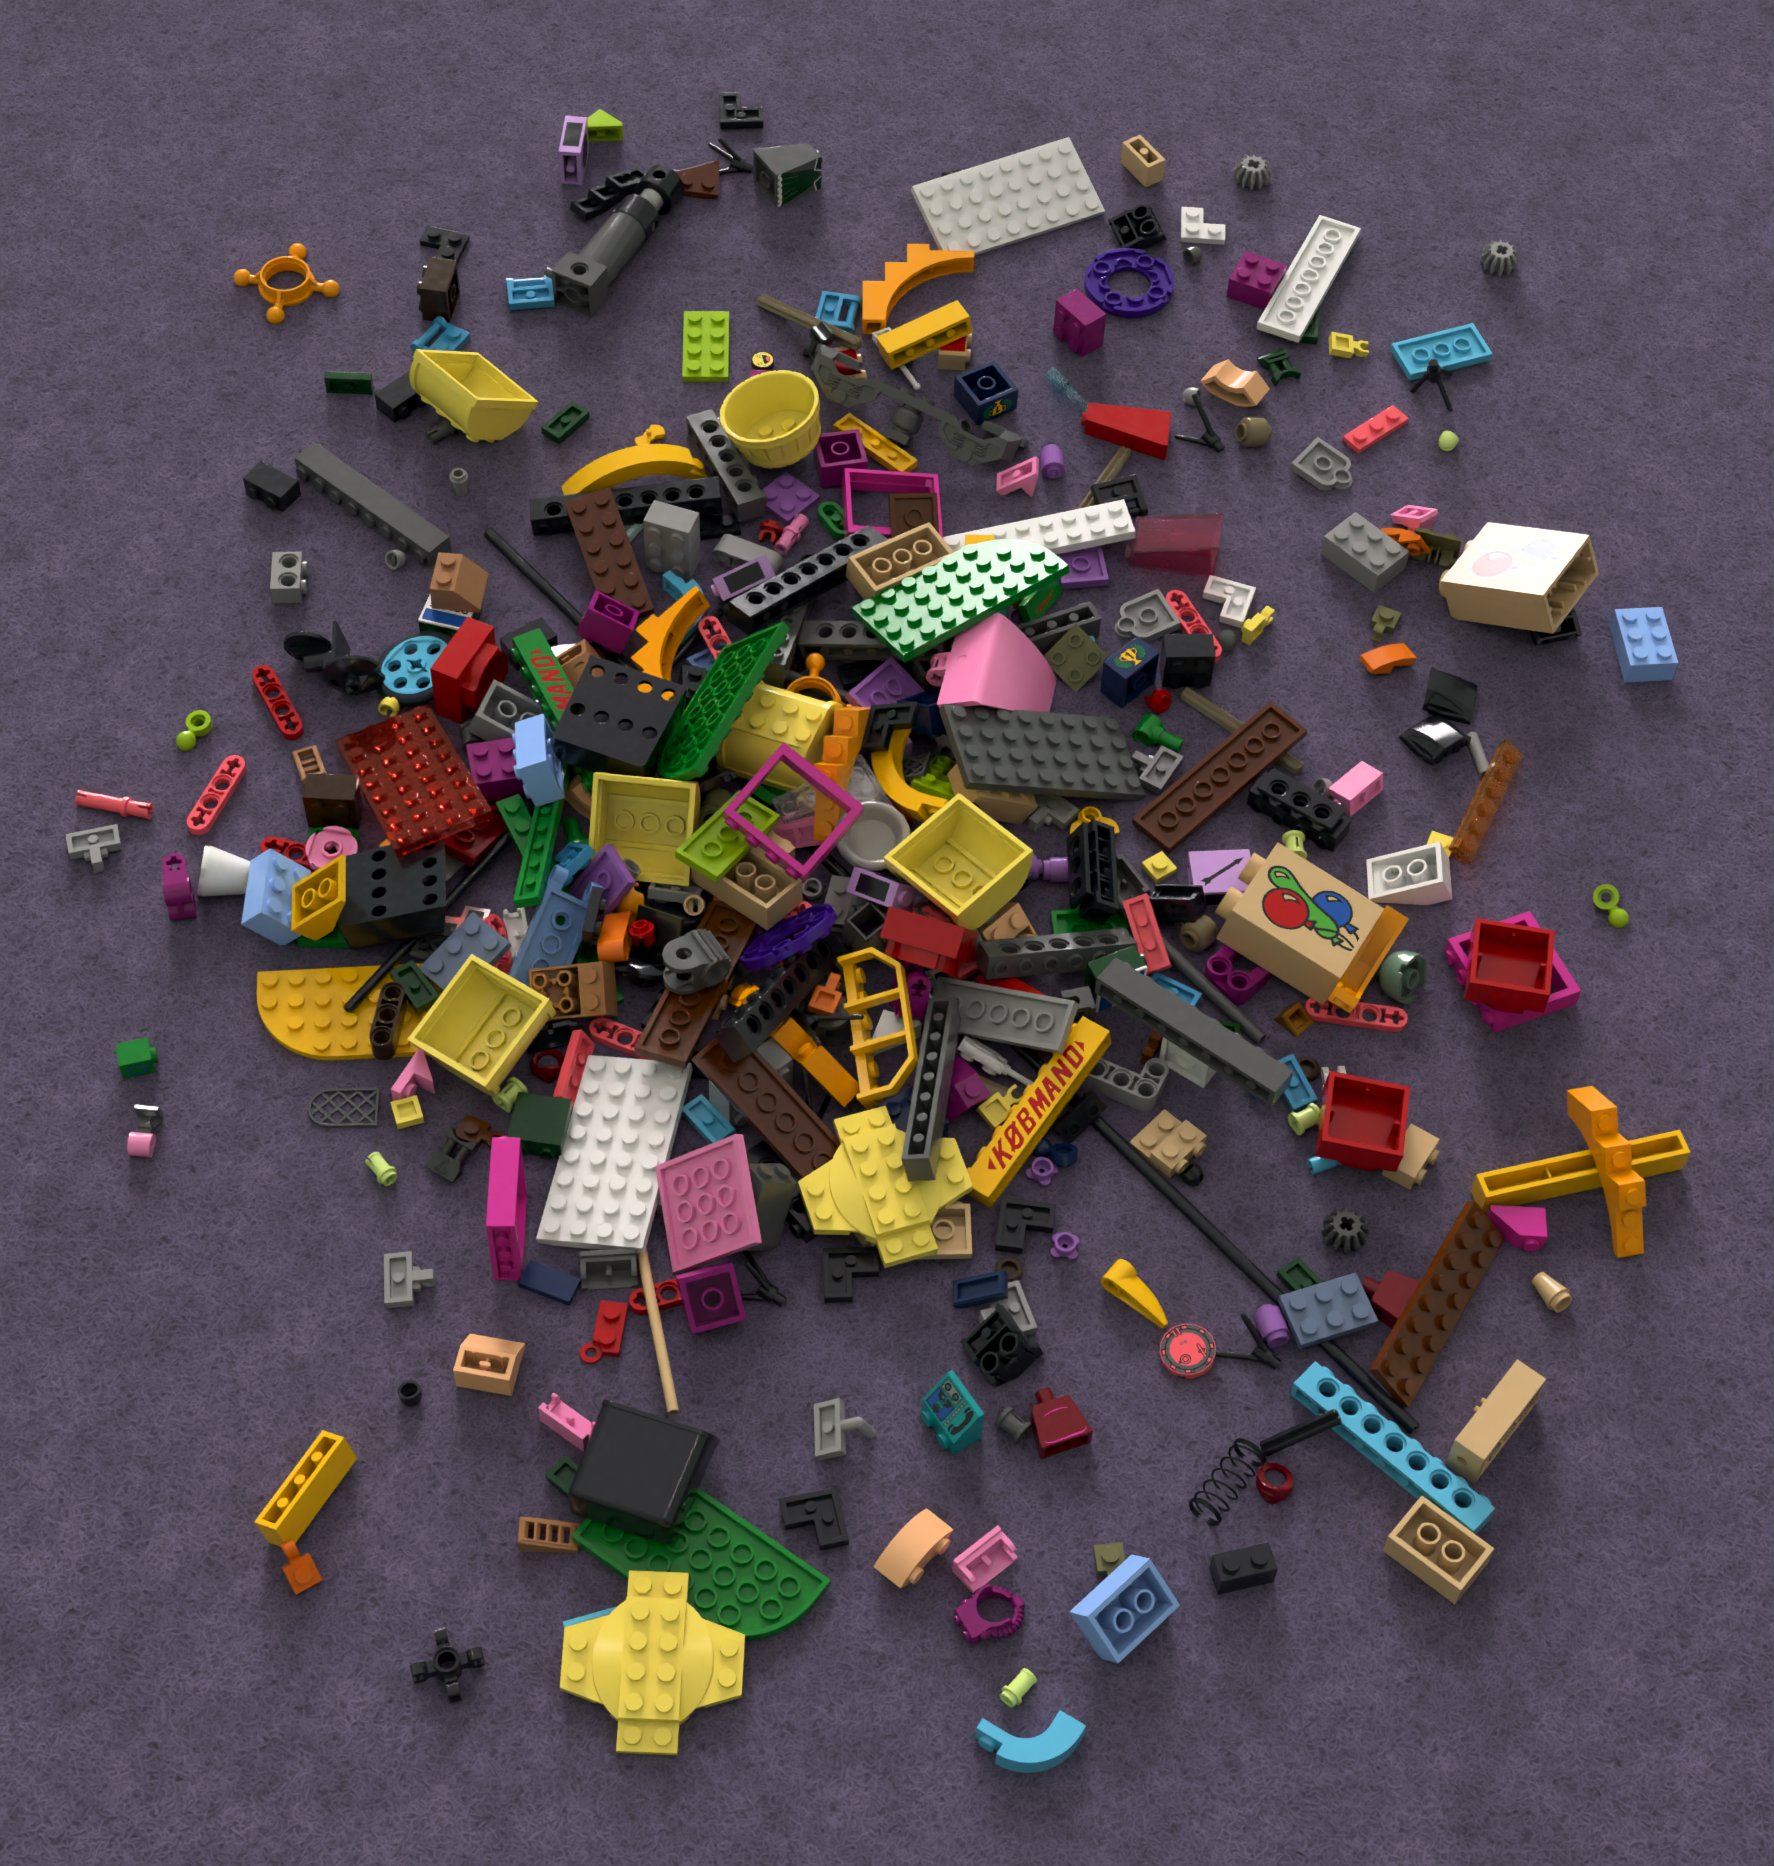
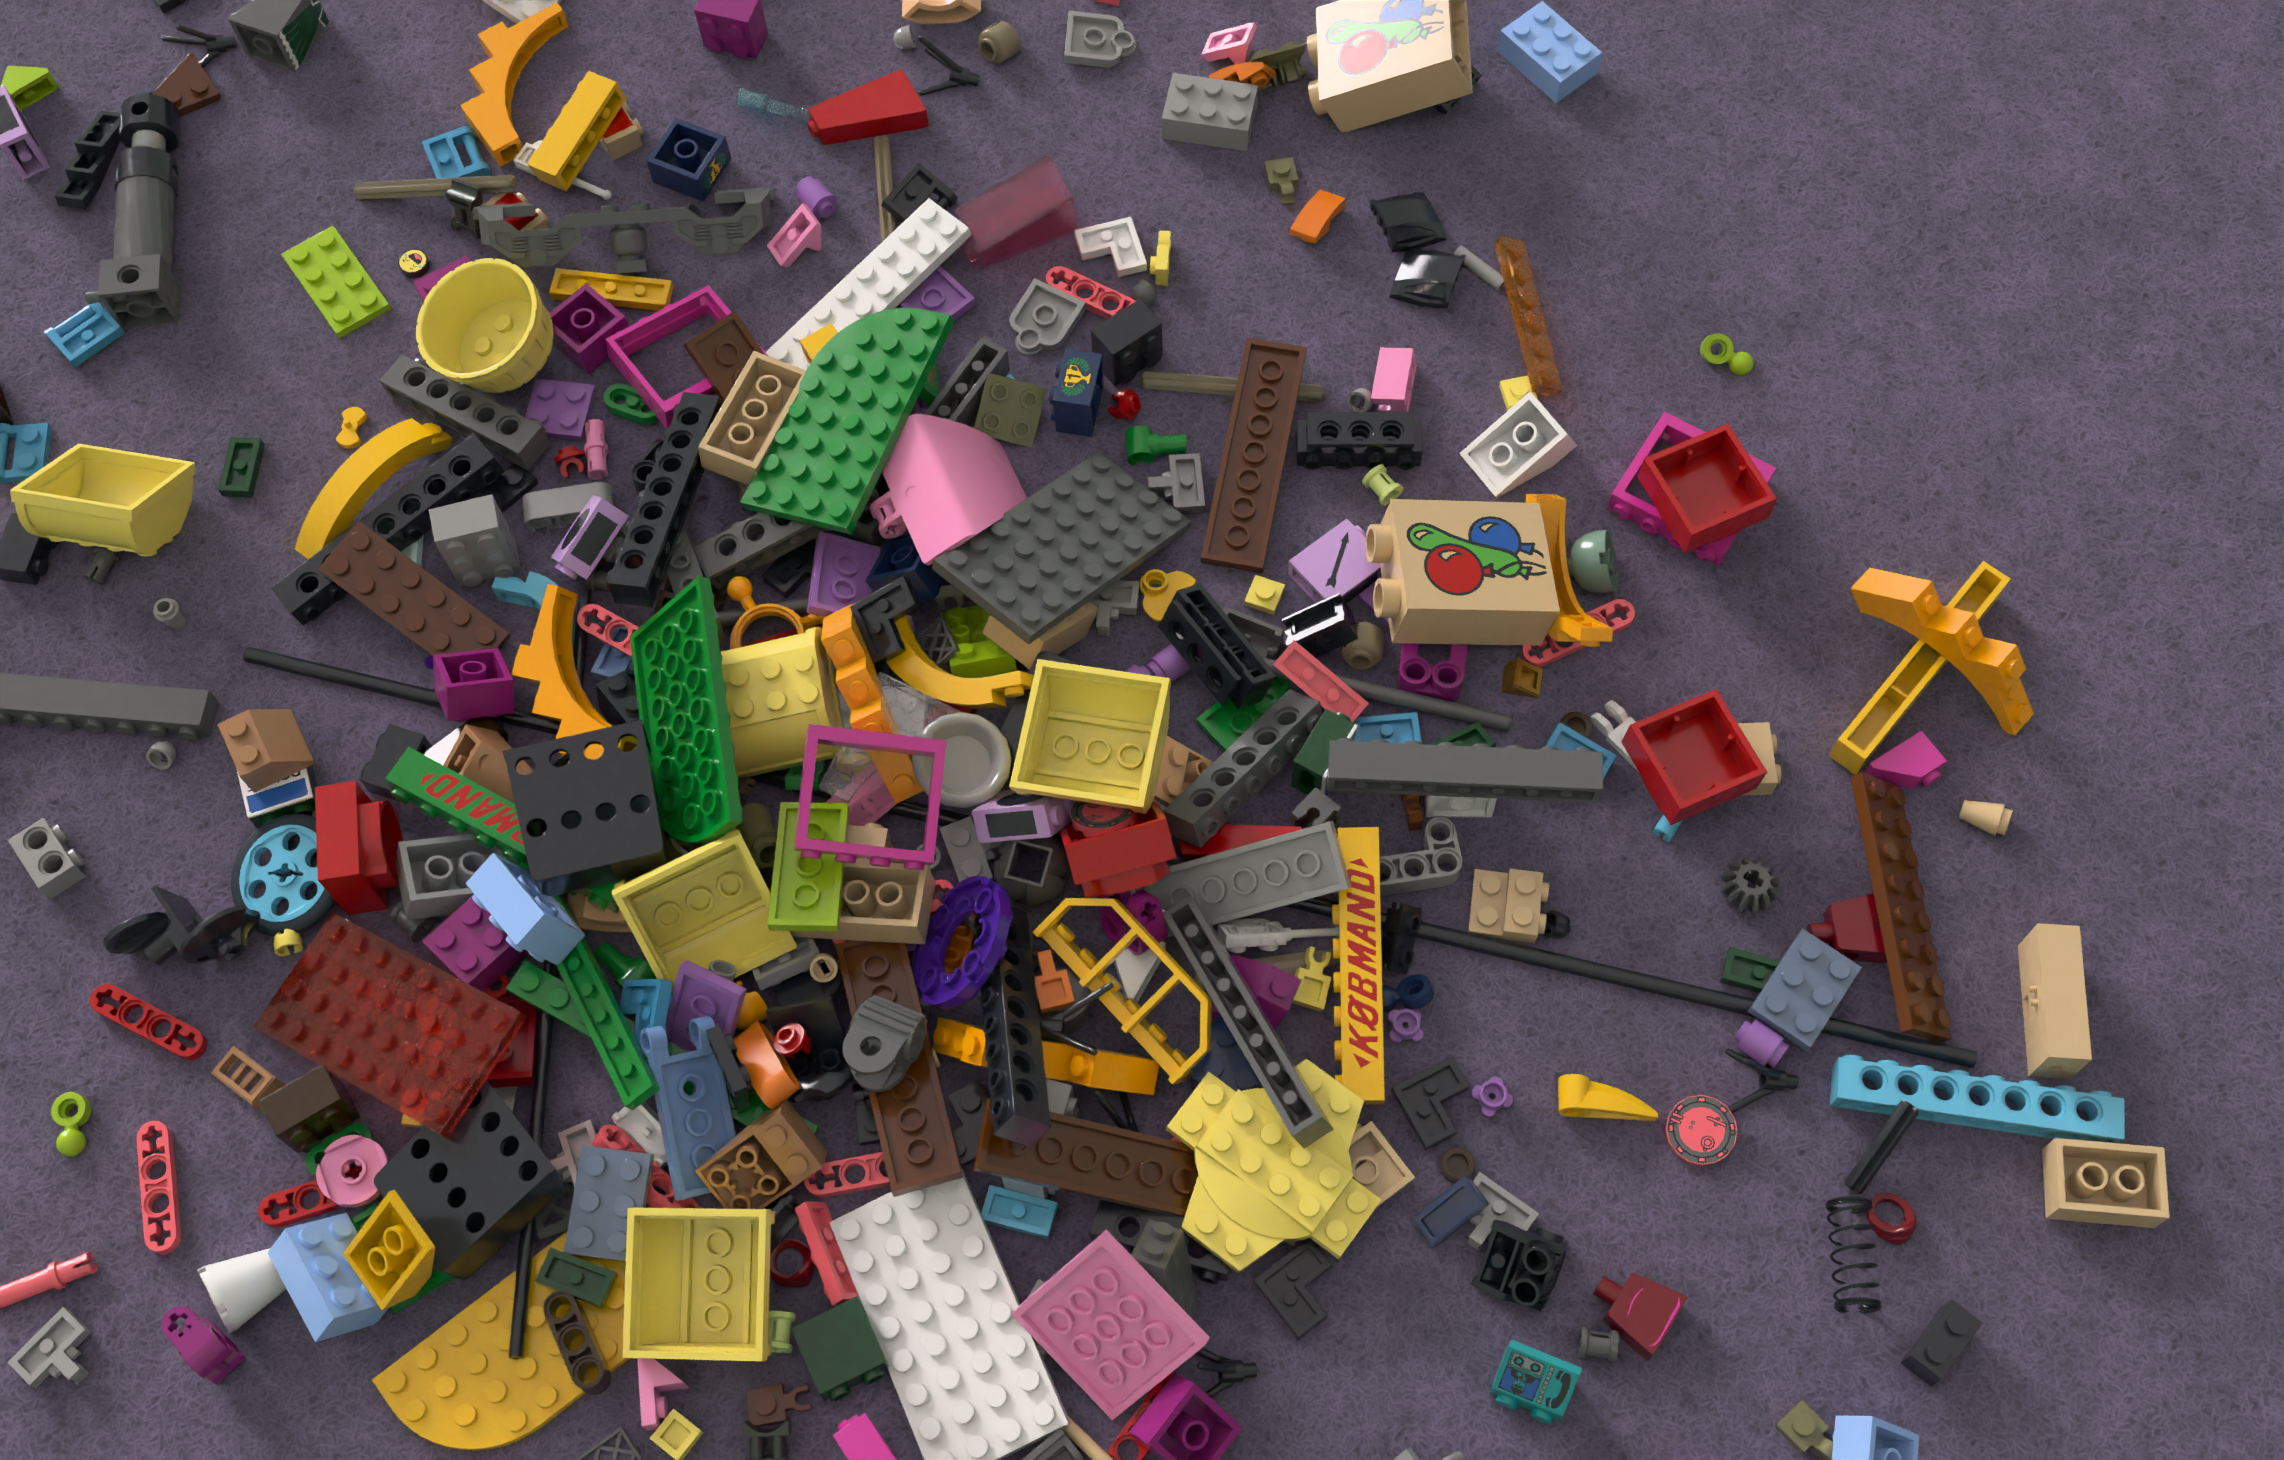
camera: 30 degrees left, 10 degrees up
(1304, 1119) = (1619, 785): yellowish green bush -> none

